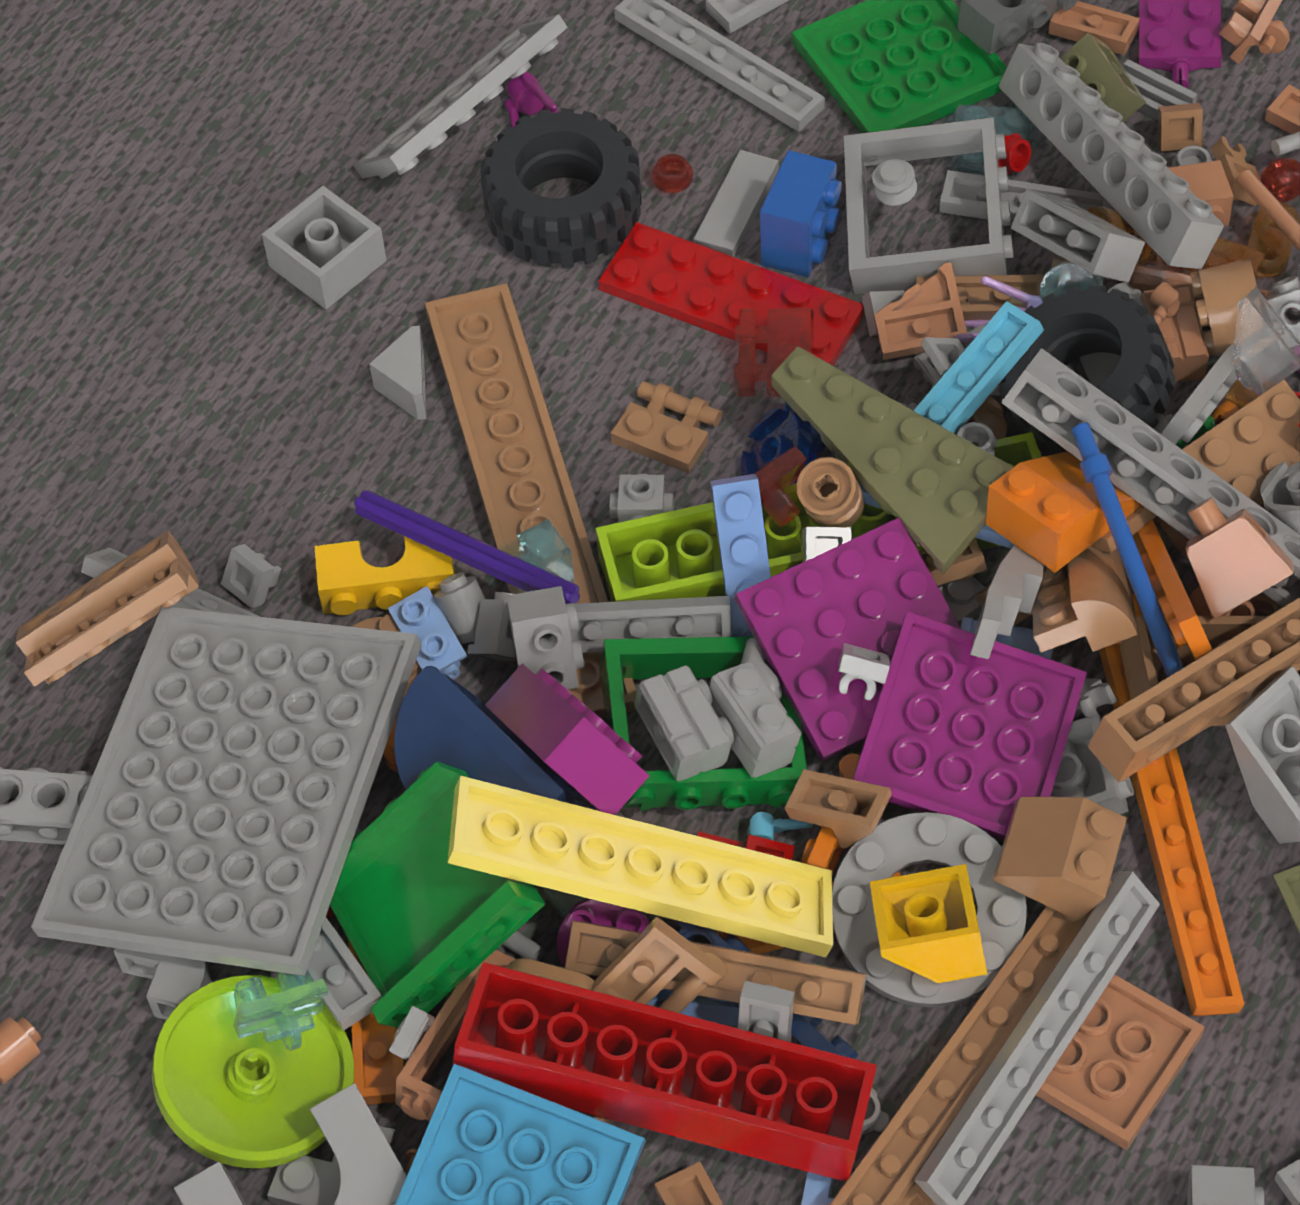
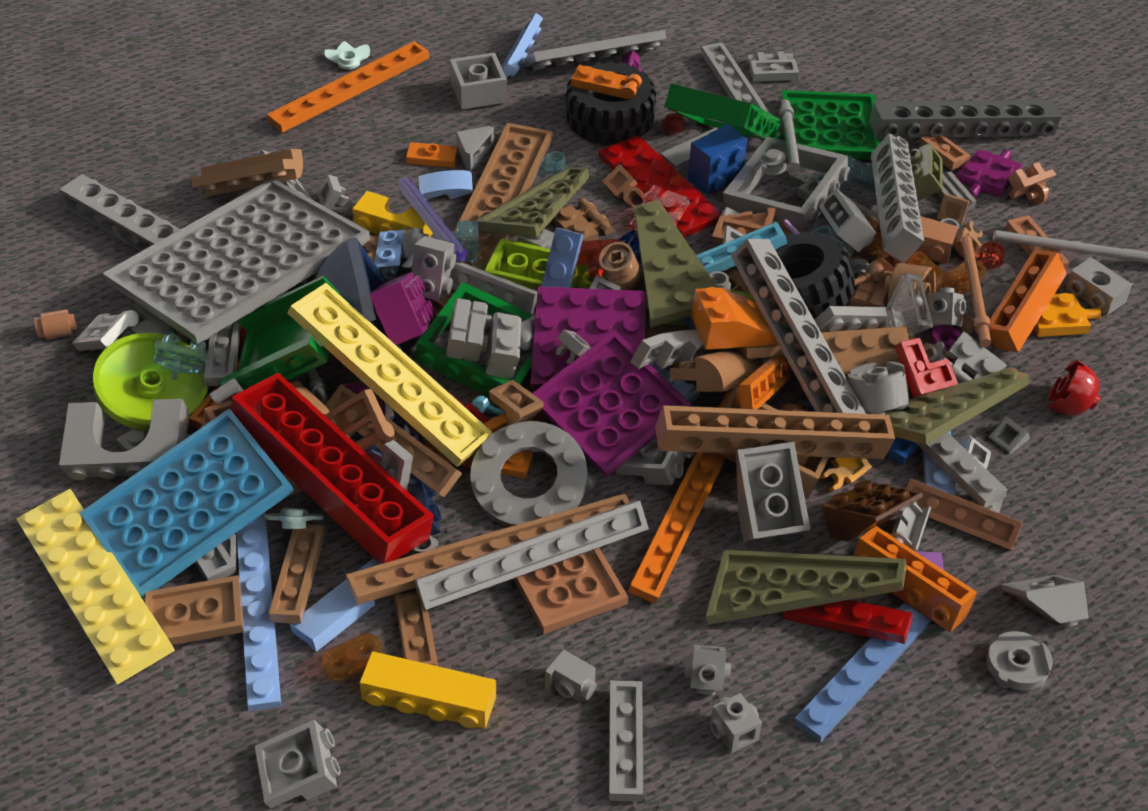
camera: 25 degrees right, 10 degrees down
(59, 296) = (347, 56): none -> light aqua plate
(103, 1033) = (105, 330): none -> white plate
(115, 360) = (347, 86): none -> orange plate
(334, 141) = (522, 44): none -> light blue plate
(346, 419) = (432, 155): none -> orange plate
(415, 462) = (452, 182): none -> light blue slope
(548, 327) = (554, 162): none -> clear light blue plate
(551, 162) = (606, 82): none -> orange plate
(599, 443) = (536, 207): none -> olive wing
(659, 1175) = (293, 517): none -> light aqua plate
(679, 326) = (622, 185): none -> nougat plate
(766, 132) = (720, 110): none -> green window
(841, 80) = (787, 116): none -> light grey bar
(929, 923) = (517, 475): yellow slope -> none
(1017, 153) = (858, 186): red plate -> none
(1060, 852) = (612, 476): medium nougat slope -> none
(1097, 471) = (755, 307): blue bar -> none
(1233, 557) = (803, 382): torso -> none

